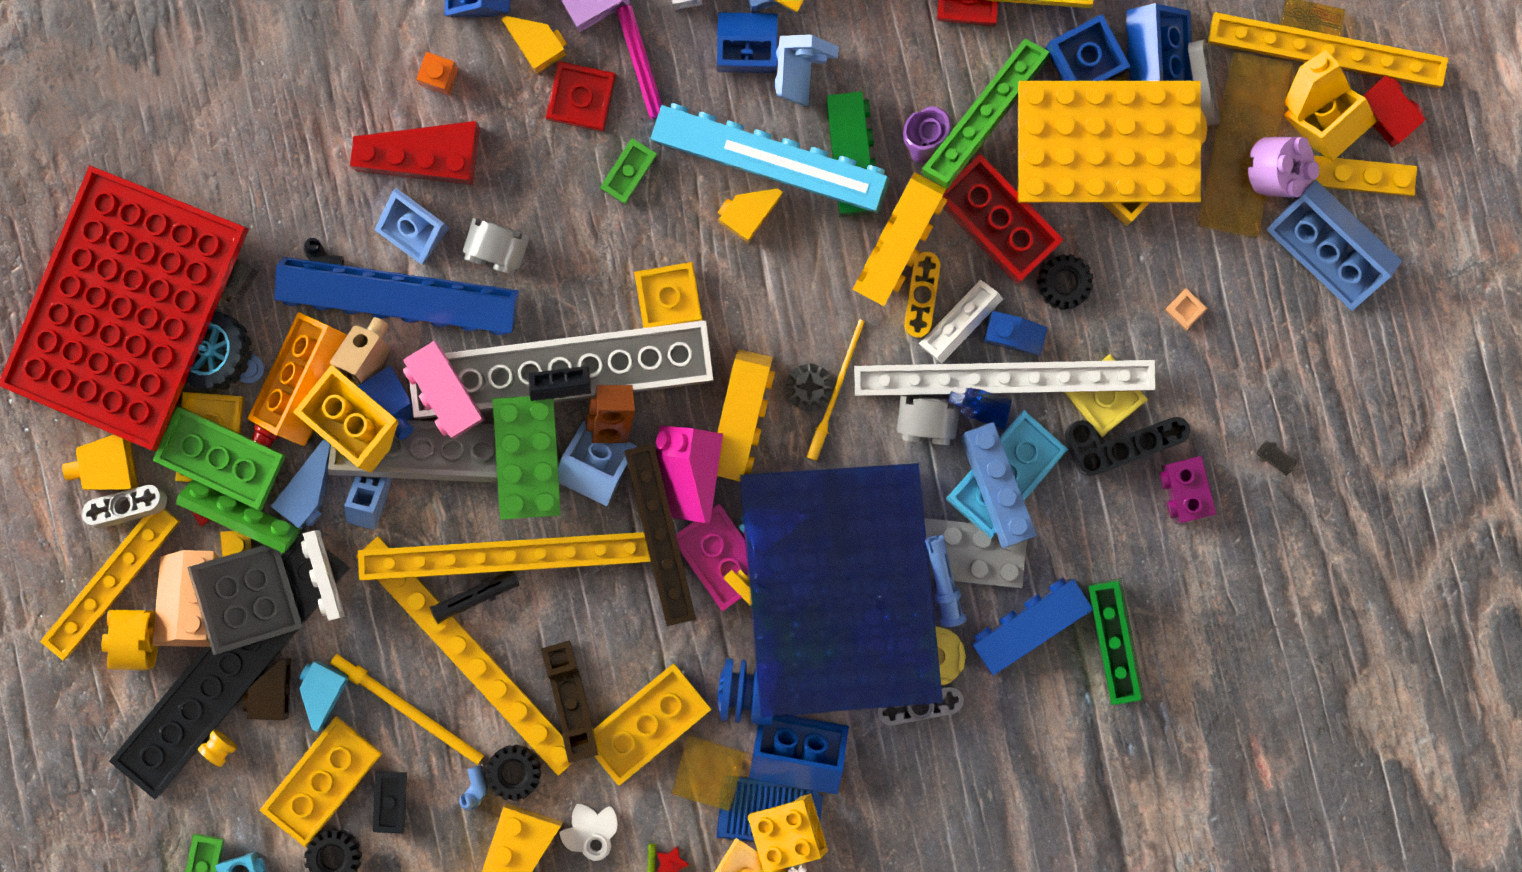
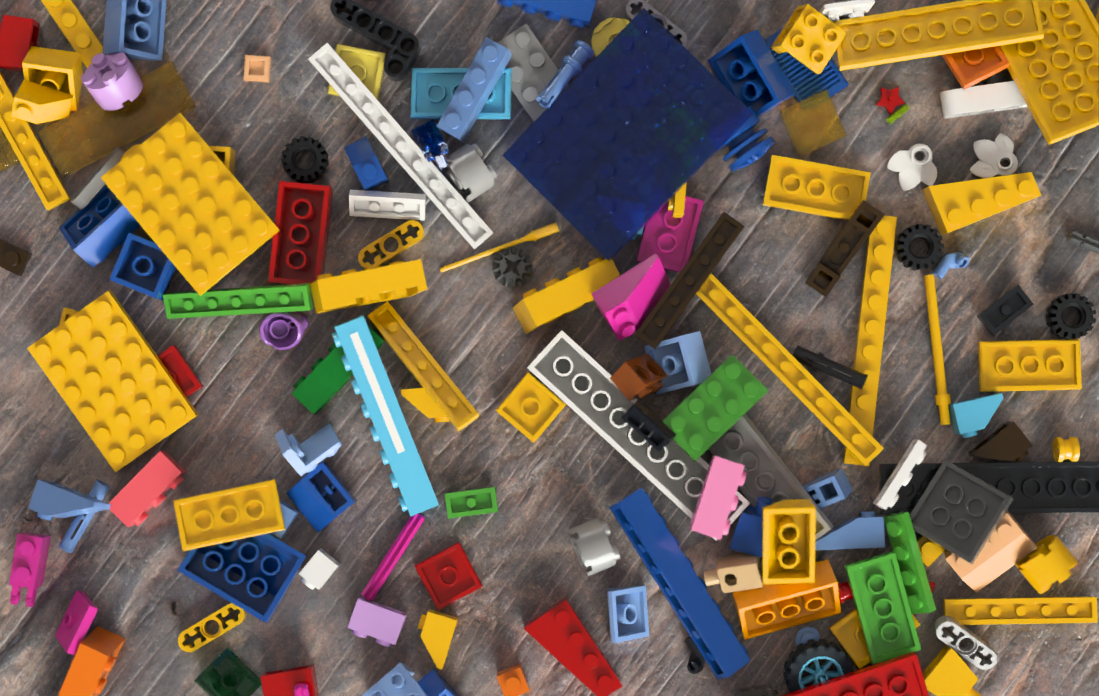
camera: 135 degrees left, 0 degrees up
(786, 228) = (423, 366): none -> yellow plate

